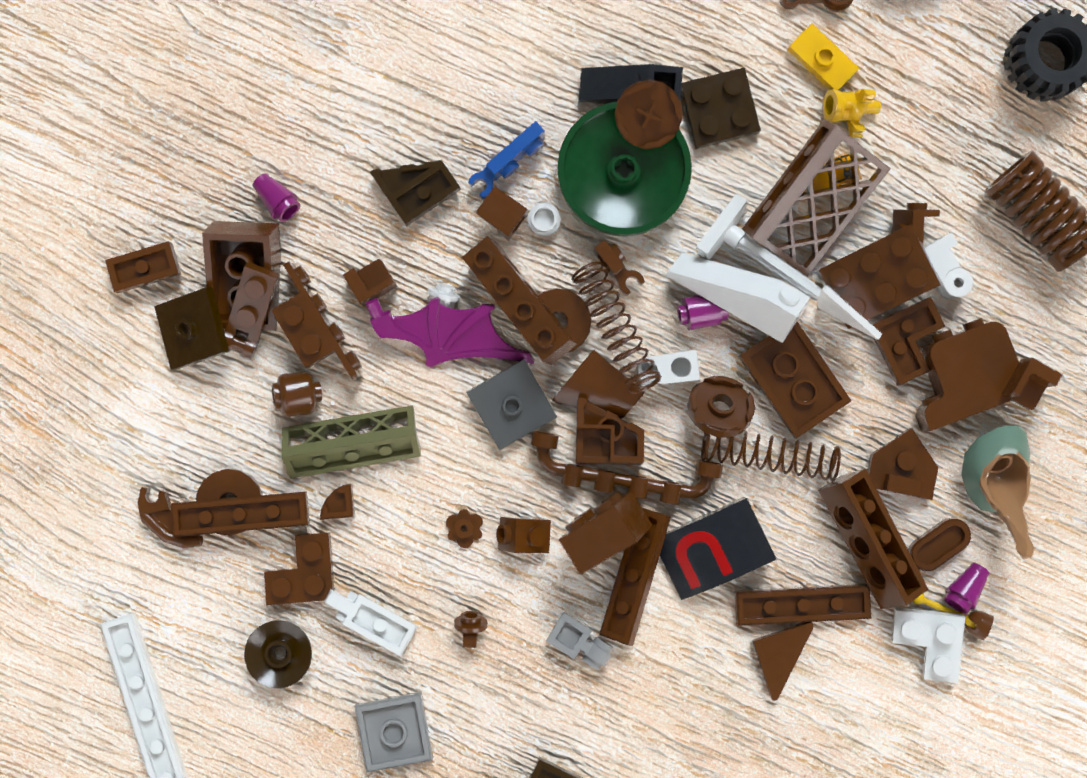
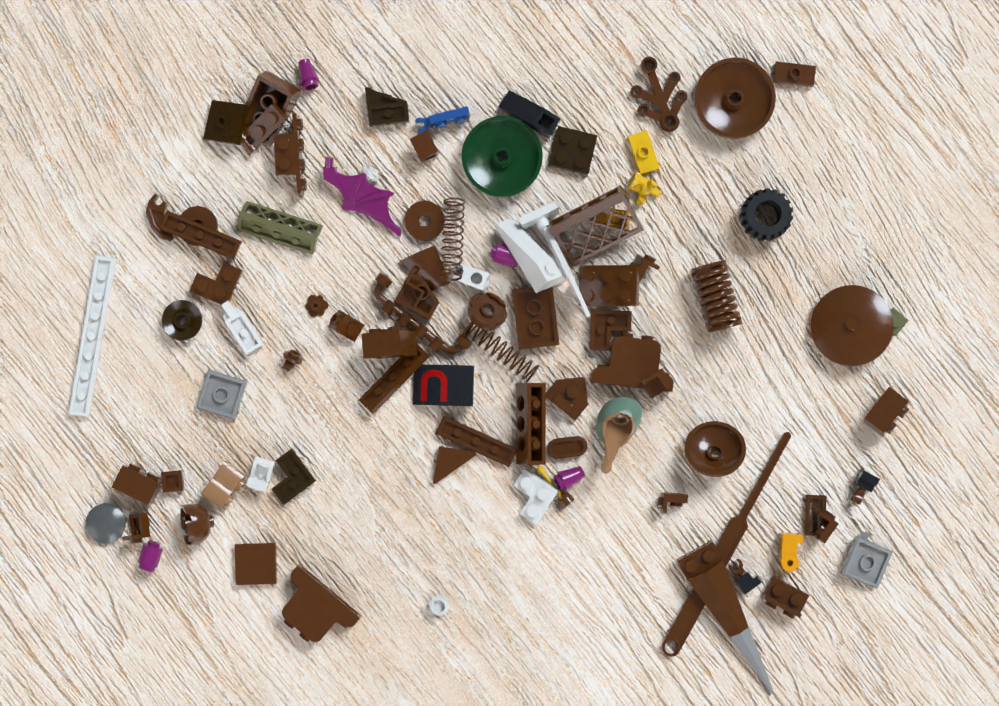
camera: 30 degrees right, 0 degrees up
(143, 267) = (217, 75): reddish brown plate -> none
(296, 394) = (263, 186): reddish brown head -> none
(339, 504) = (255, 257): reddish brown tile -> none
(370, 281) = (334, 146): reddish brown panel -> none
(511, 404) = (376, 252): dark grey plate -> none
(519, 300) = (408, 198): reddish brown brick -> none
(544, 219) = (446, 161): white plate -> none
(572, 636) = (343, 393): light grey plate -> none
(613, 263) = (471, 201): reddish brown plate -> none
(648, 114) = (528, 134): reddish brown tile -> none
(954, 279) = (647, 304): white leg -> none

